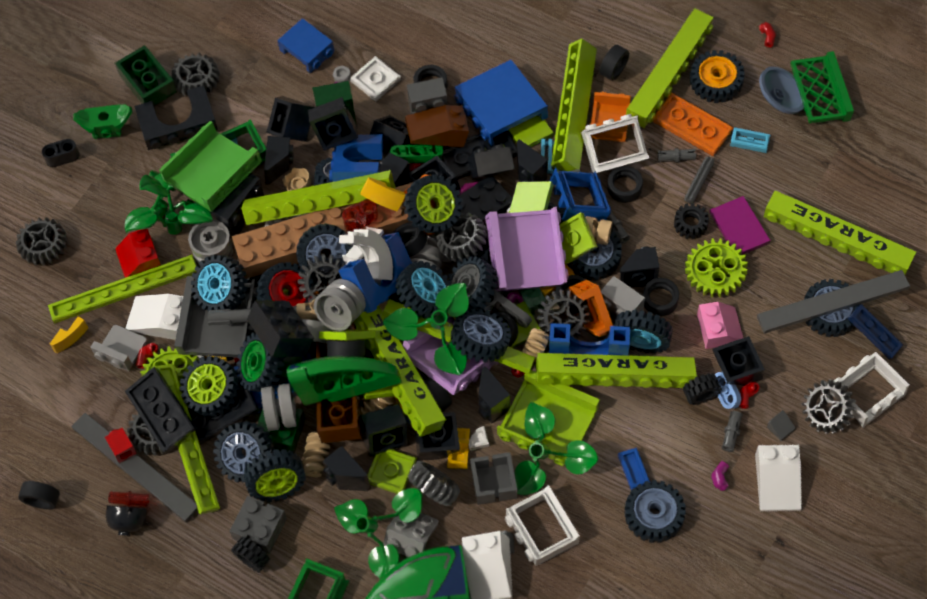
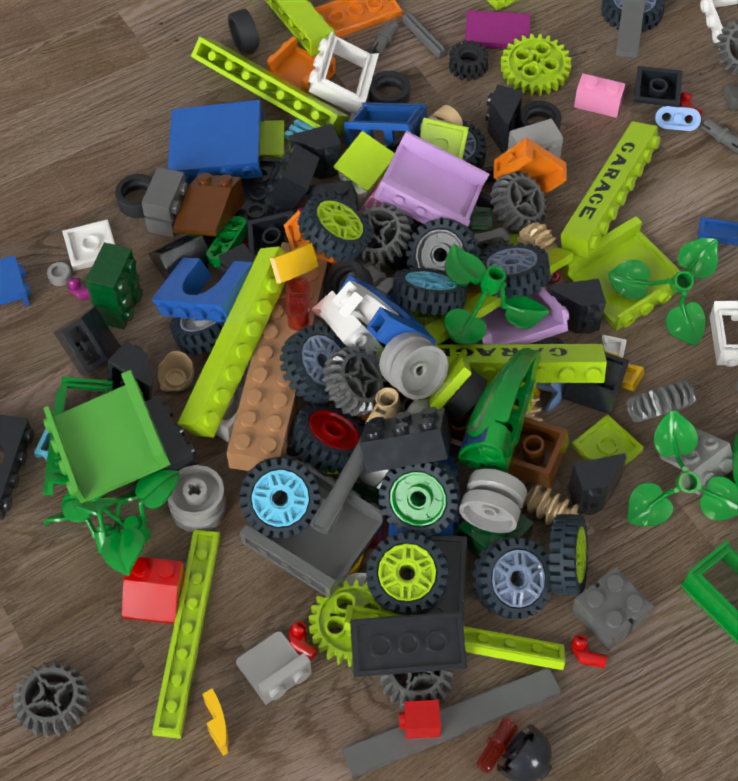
camera: 65 degrees left, 5 degrees down
(155, 315) = (256, 602): white slope -> none
(220, 523) = (583, 653): none -> red arm
(250, 554) = (651, 631): black tyre -> none
(333, 124) = (147, 284): black brick -> none
(384, 430) = (566, 411): black brick -> none
(495, 480) = (677, 348): dark grey piece -> none
(564, 343) = (559, 204): blue arch -> none
(646, 331) = (584, 141): black wheel -> none
(702, 389) = (670, 131): black tyre -> none

